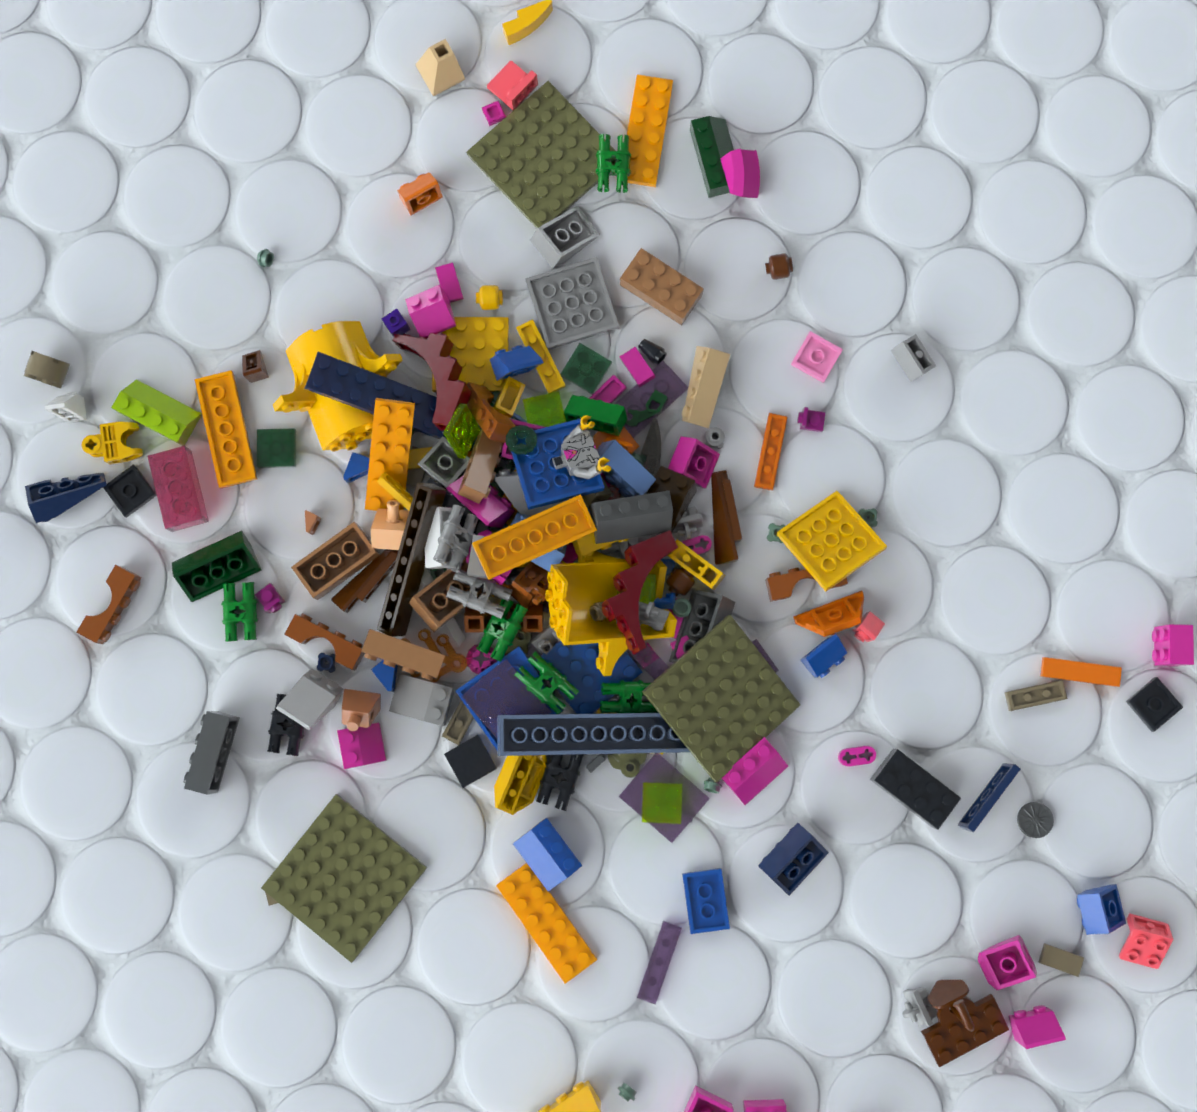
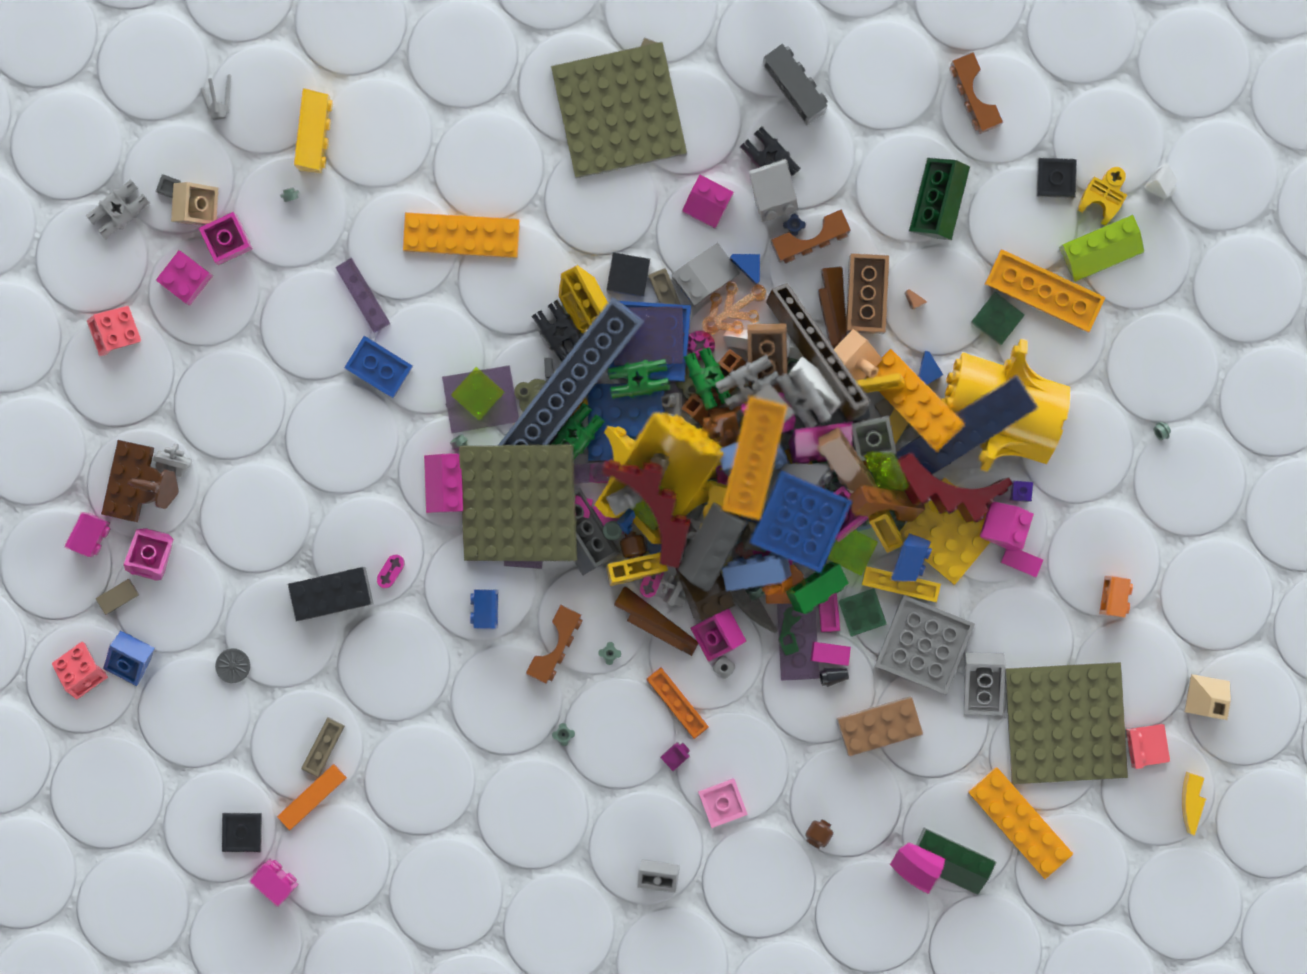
camera: 125 degrees right, 5 degrees up
(46, 369) = (1207, 188): dark tan brick -> none
(51, 499) = (1096, 117): dark blue wedge -> none
(178, 488) = (1025, 216): clear pink brick -> none
(231, 605) = (889, 199): green pin -> none
(254, 367) = (1079, 352): reddish brown slope -> none
(270, 598) = (880, 220): magenta bracket -> none
(359, 708) = (736, 222): nougat torso -> none
(402, 653) = (749, 287): medium nougat brick -> none
(489, 297) = (982, 582): yellow head -> none
(493, 113) = (1136, 711): dark pink tile -> none
(521, 432) = (846, 514): clear green gear -> none
(547, 854) = (510, 275): slope -> none
(580, 453) = (790, 545): light grey torso -> none
(622, 163) = (1001, 772): green pin -> none
(704, 385) = (771, 692): tan wedge -> none
(793, 859) = (355, 458): dark blue slope -> none
(831, 540) = (568, 688): yellow plate -> none
(833, 616) = (509, 642): orange wing -> none
(868, 628) = (479, 661): coral slope -> none
(989, 797) = (279, 643): dark blue tile -> none

